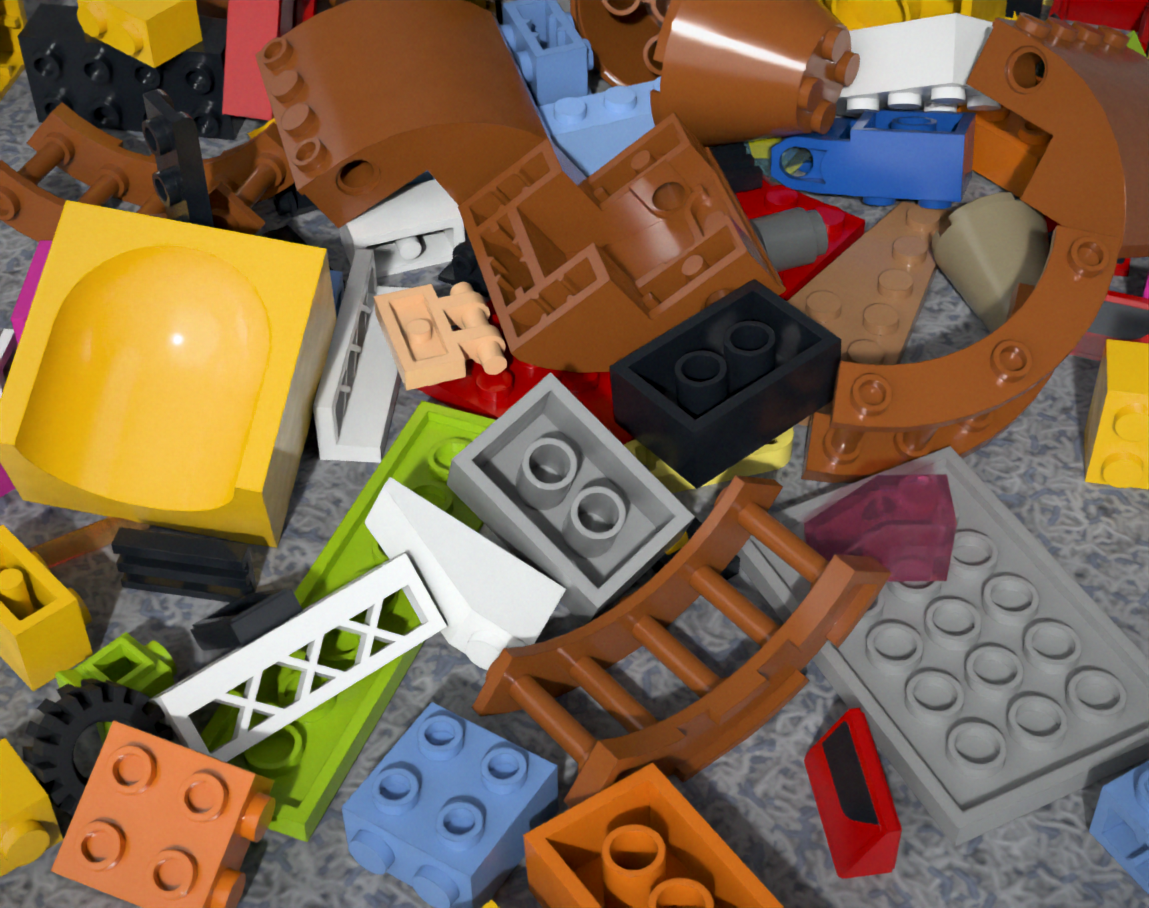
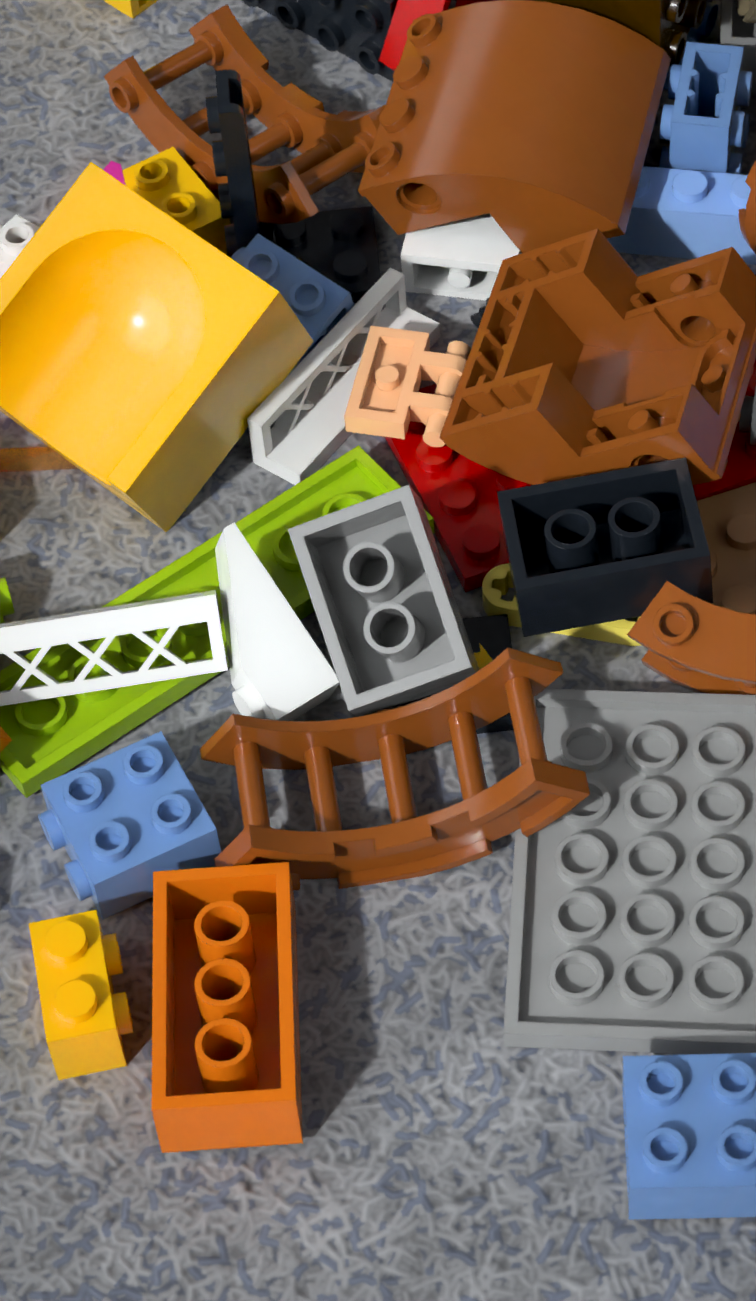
camera: 35 degrees right, 10 degrees up
(184, 565) = (74, 520): black tile -> none
(245, 619) = (80, 592): black tile -> none
(854, 799) = (451, 969): red slope -> none
(896, 520) = (638, 754): clear pink slope -> none

